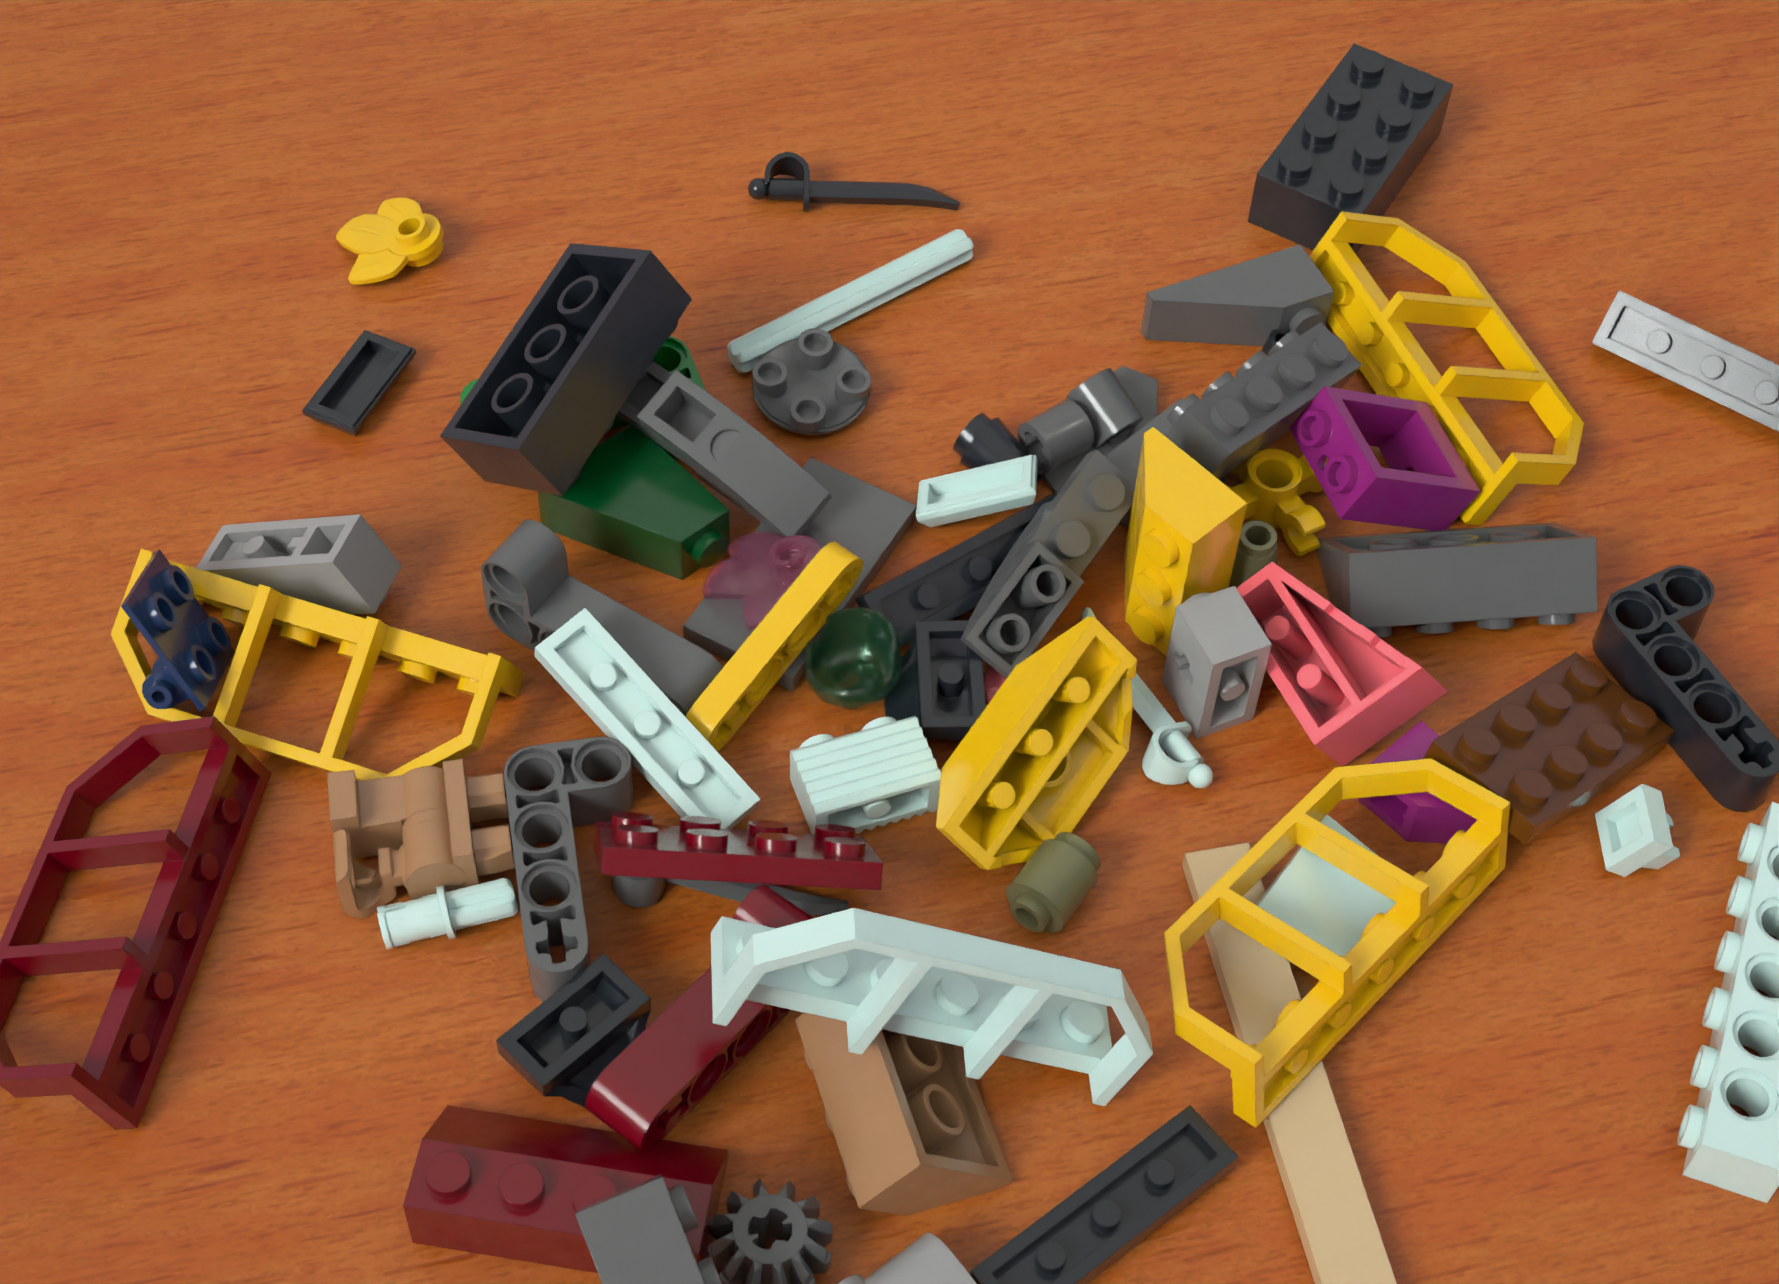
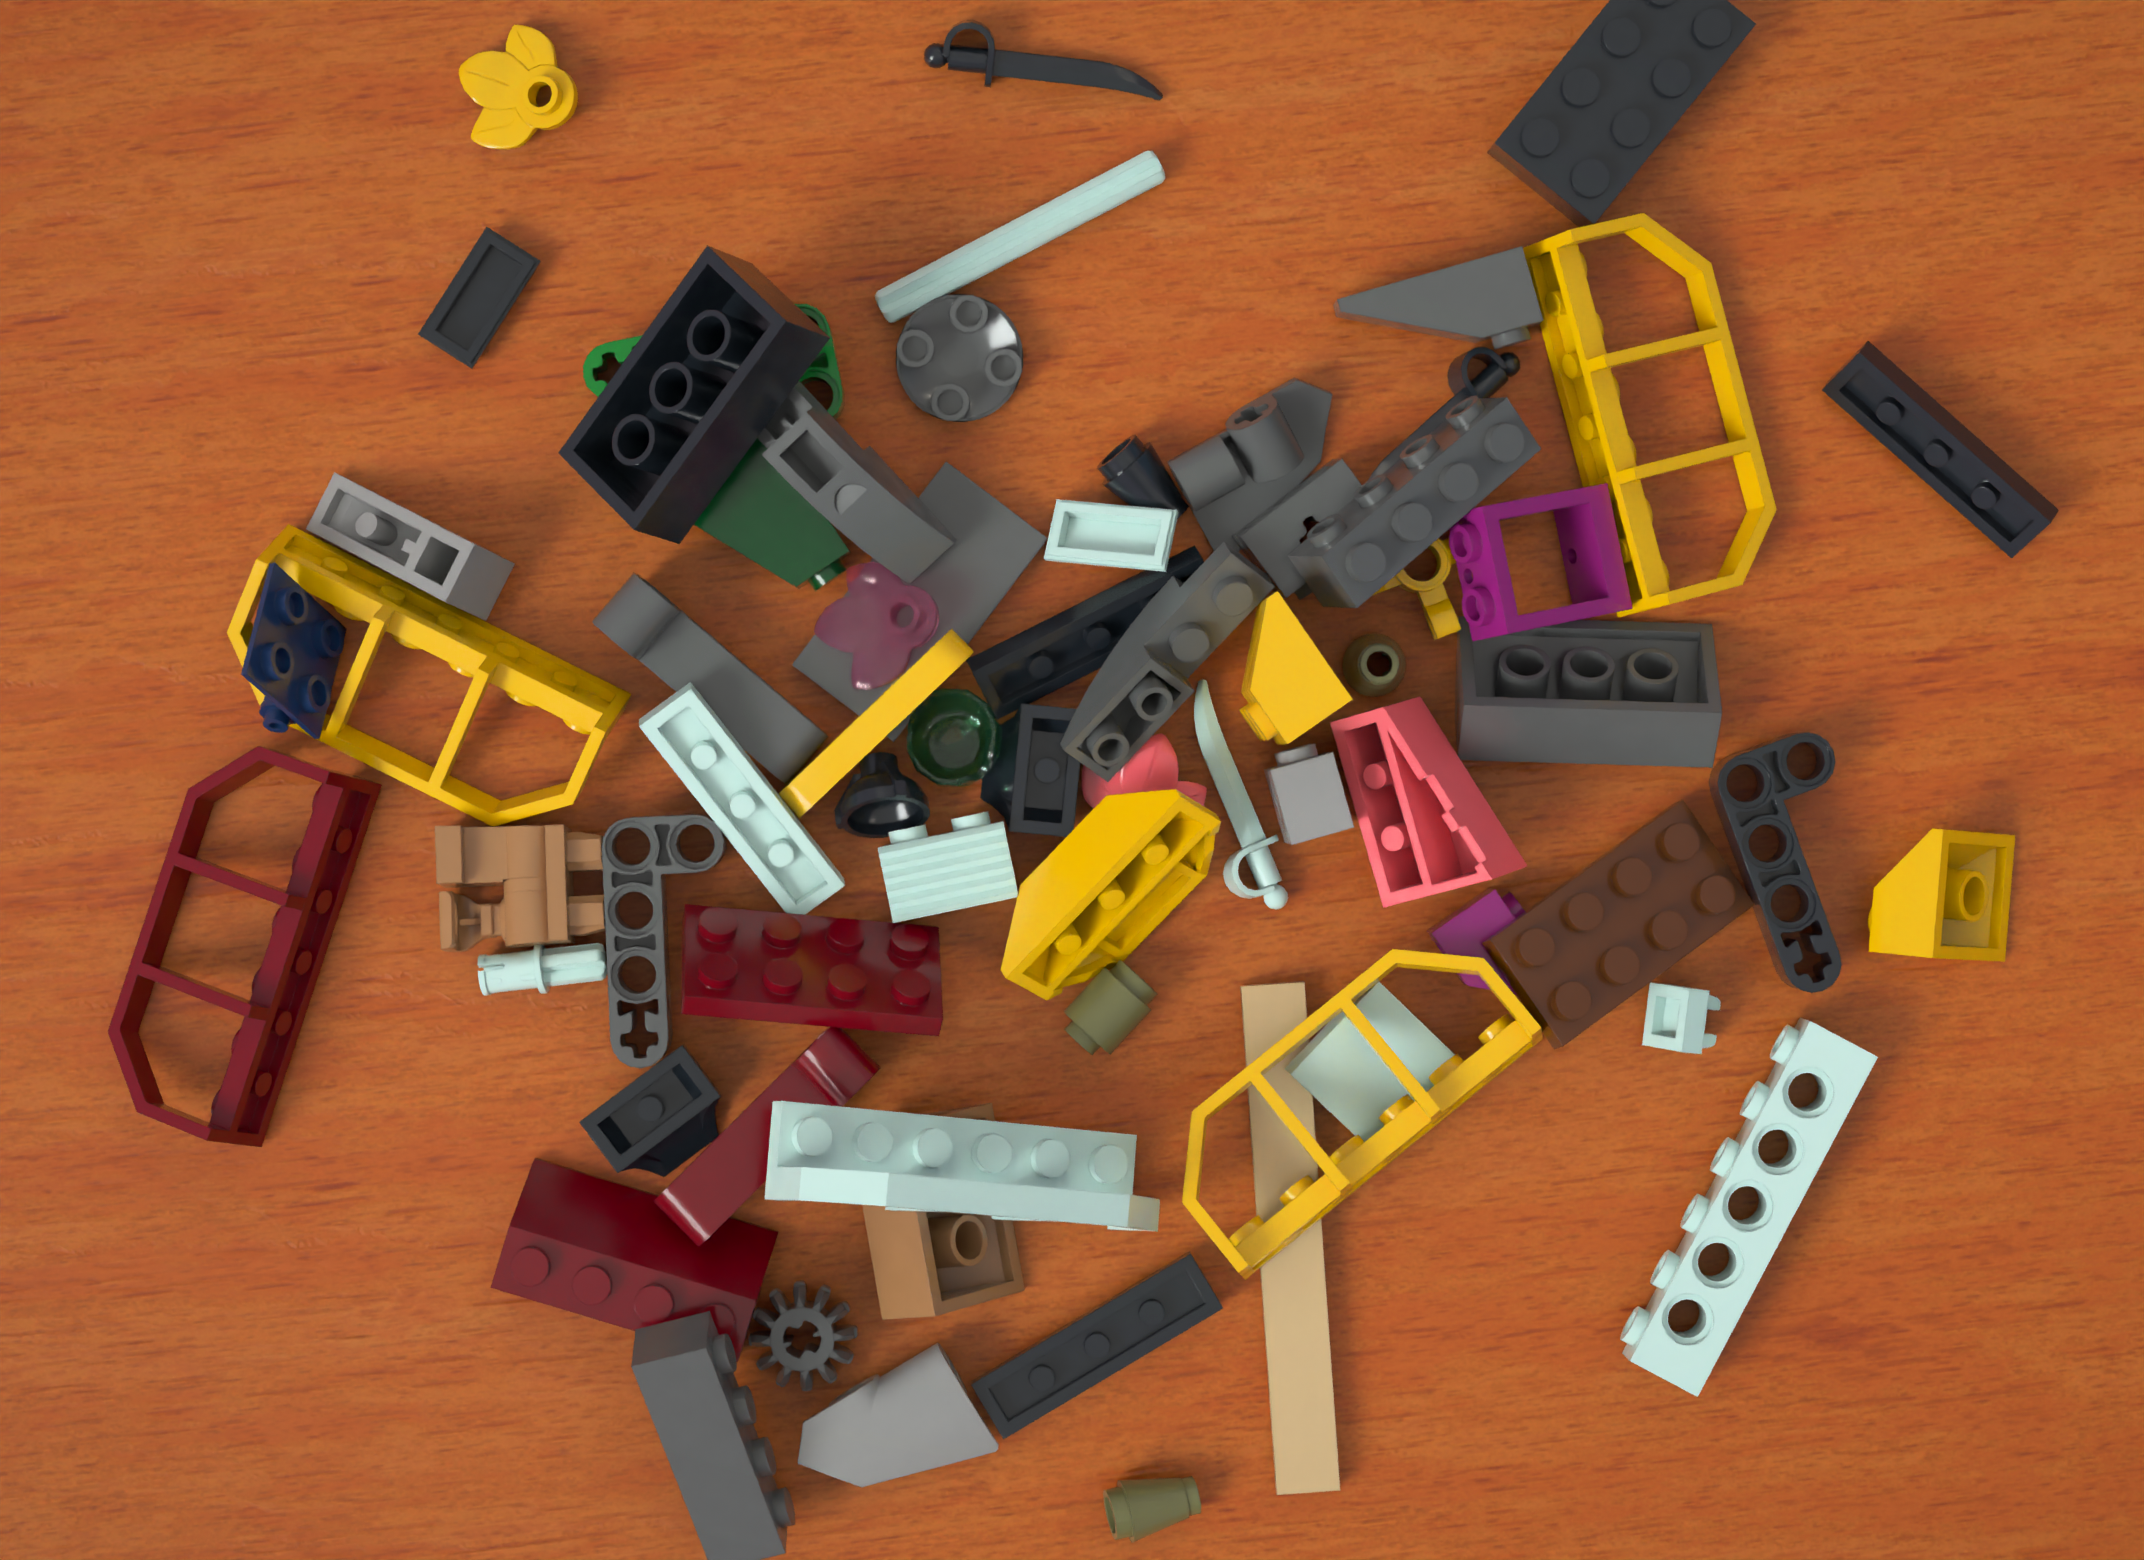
camera: 10 degrees right, 35 degrees up
(775, 734) = (881, 799): none -> black piece

